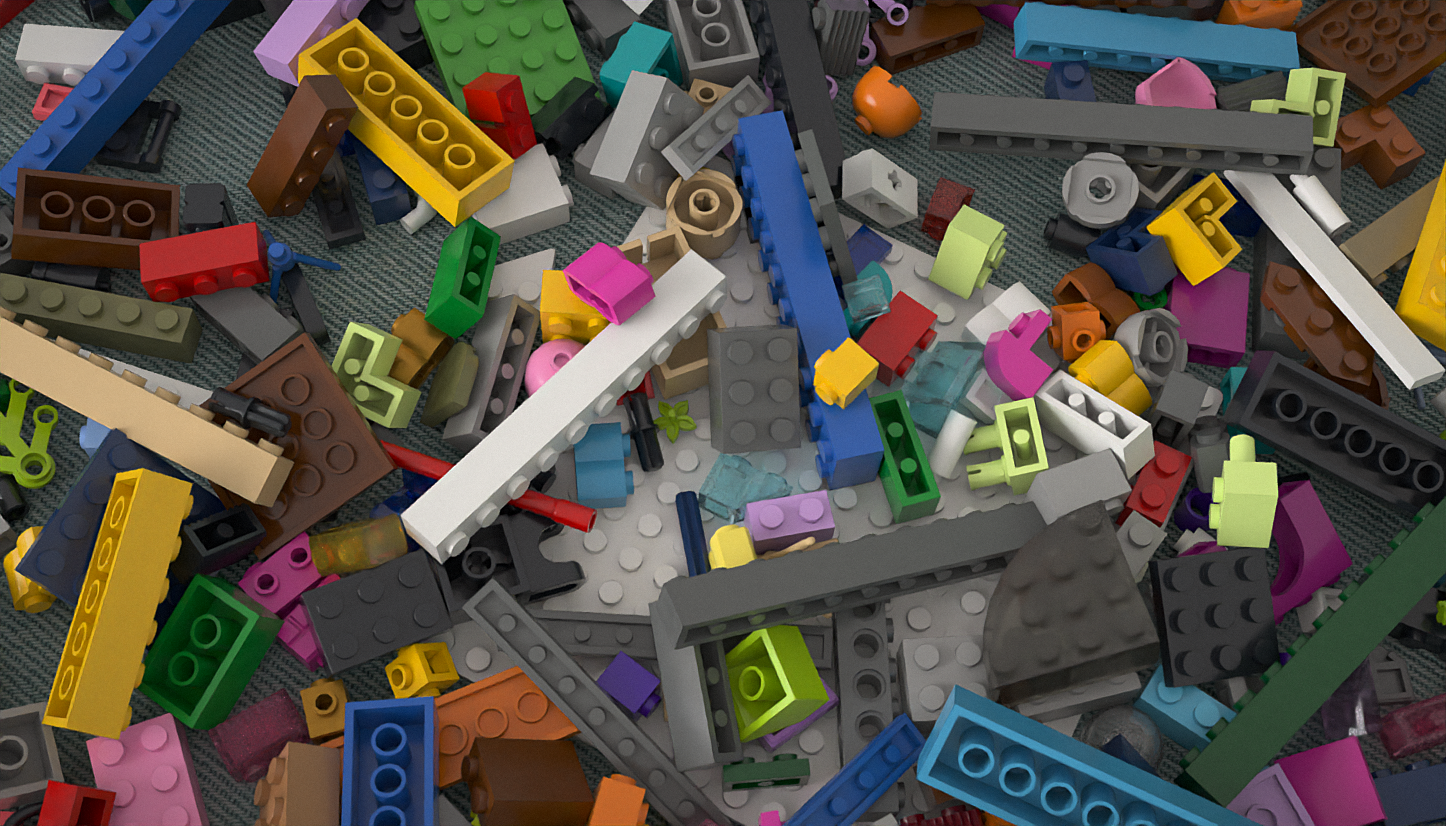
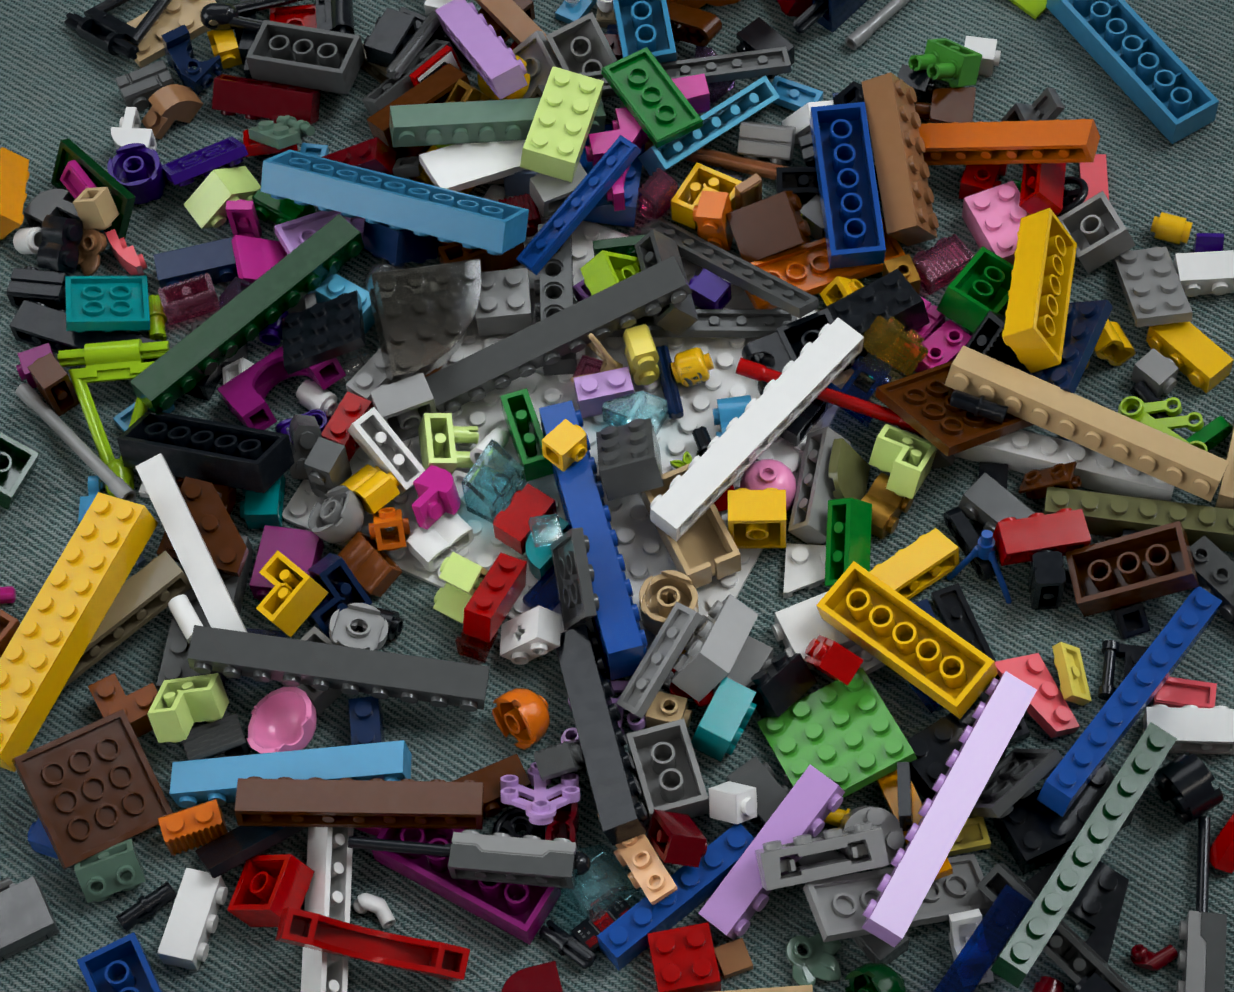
camera: 170 degrees left, 5 degrees down
(176, 359) = (1061, 476): none -> reddish brown hinge
(207, 128) = (1071, 673): none -> light yellow plate
(250, 106) = (1048, 704): none -> coral wing
(302, 145) = (983, 618): reddish brown brick -> none
(381, 258) = (919, 564): none -> yellow brick
(610, 282) = (735, 493): dark pink brick -> none
(659, 559) = (692, 367): none -> yellow head
(928, 224) = (494, 597): none -> red brick
(1244, 497) = (297, 374): yellowish green brick -> none

